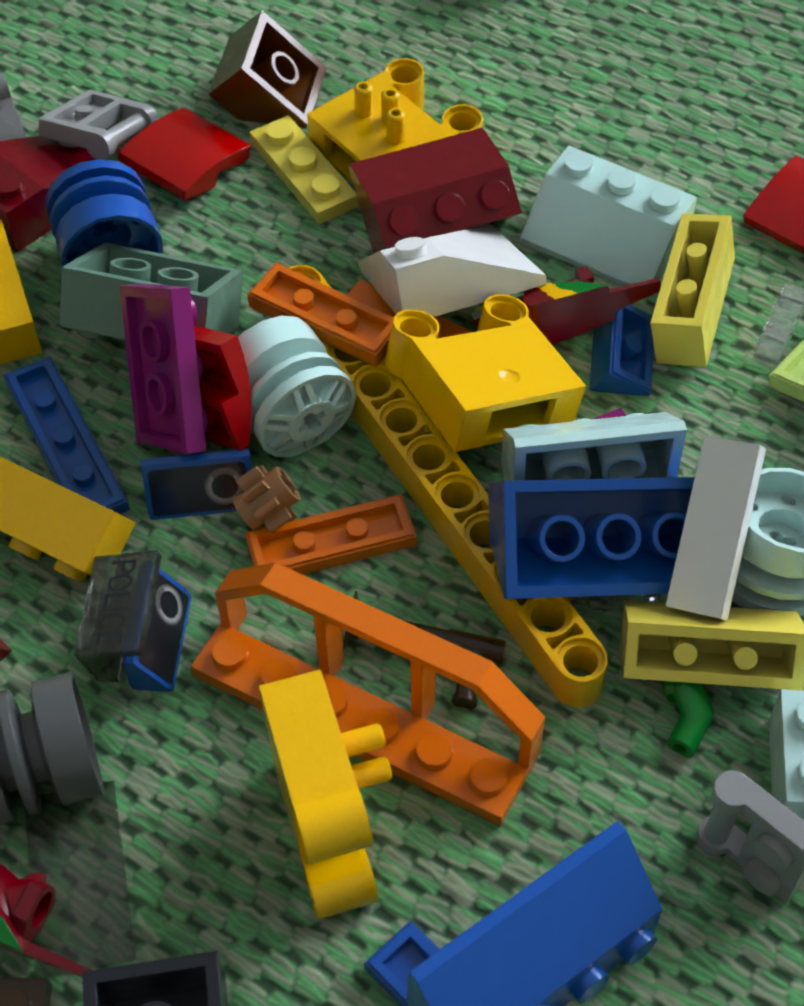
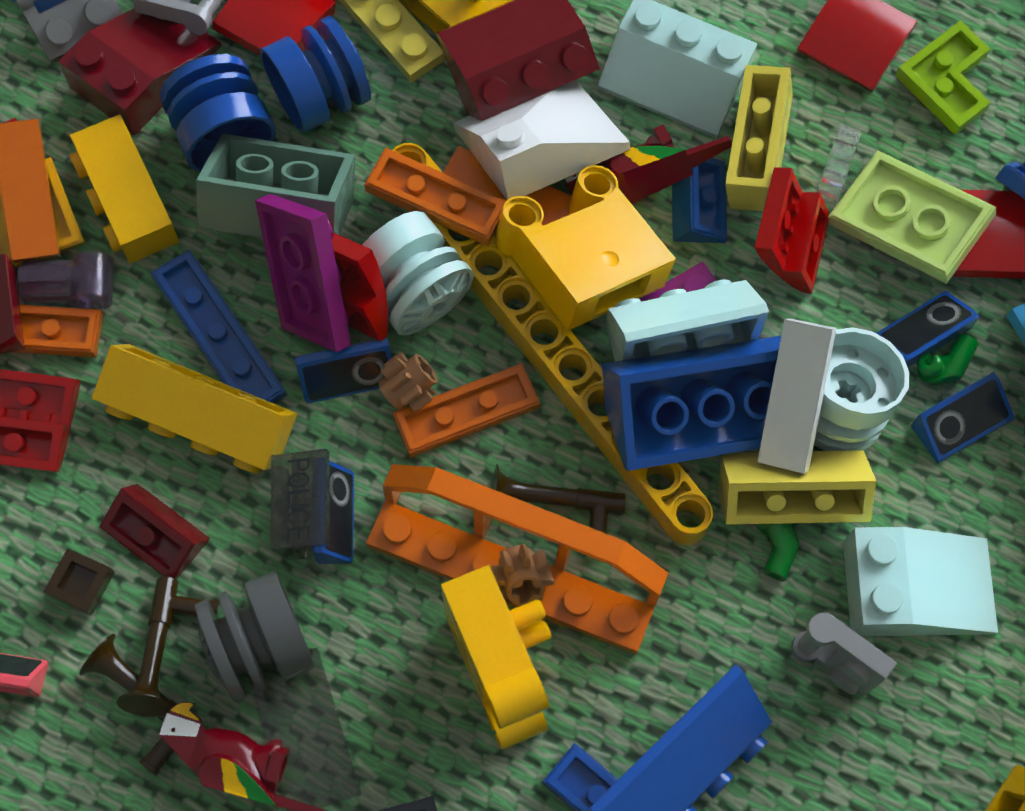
camera: 10 degrees left, 15 degrees up
(222, 194) = (323, 71): none -> blue wheel
(370, 690) = (522, 574): none -> medium nougat gear
(724, 377) = (792, 230): none -> red slope

